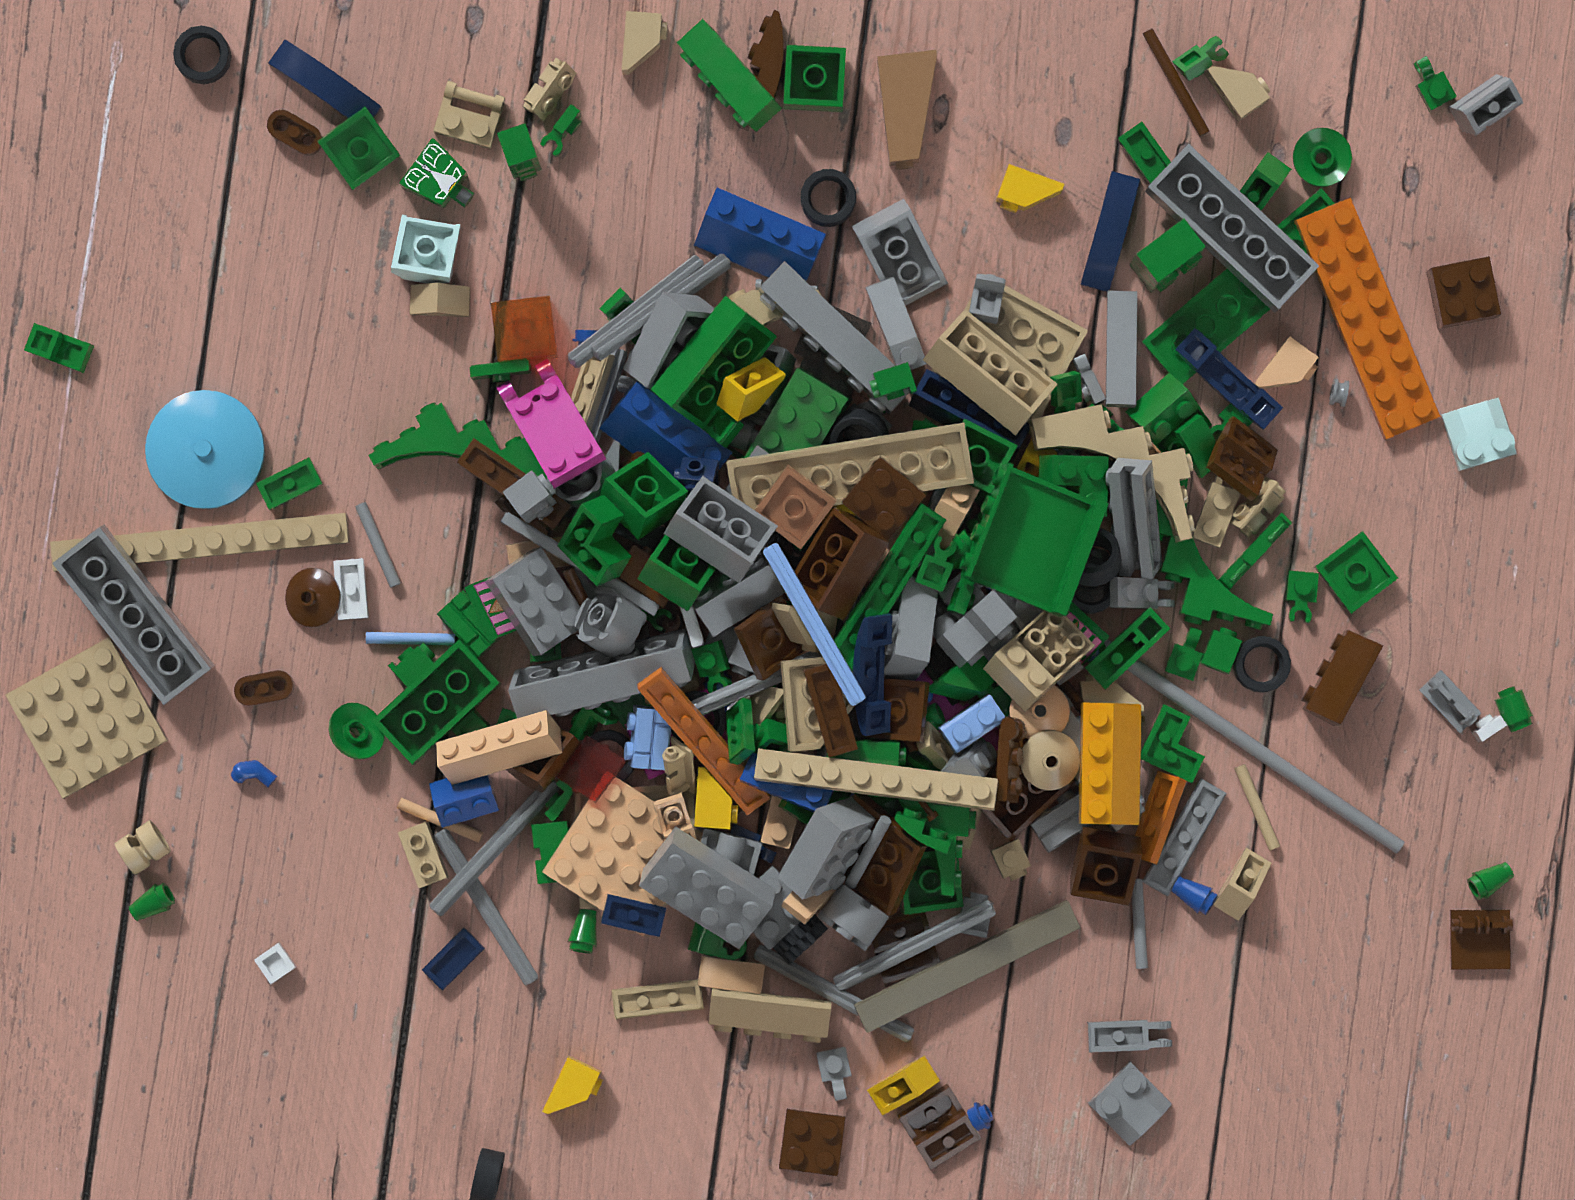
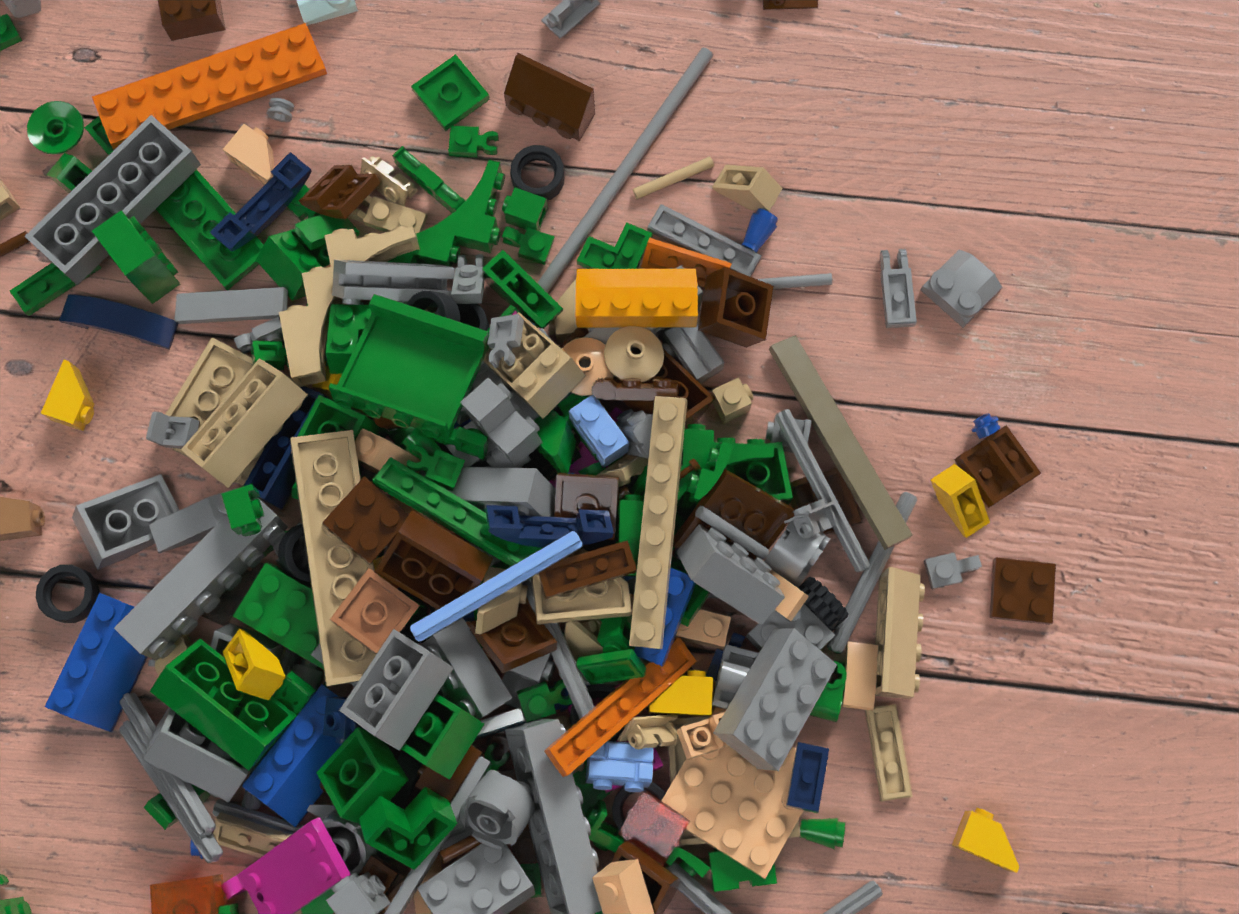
camera: 90 degrees left, 10 degrees down
(880, 932) = (813, 518): none -> light grey hinge
(1062, 631) = (503, 336): none -> light grey plate

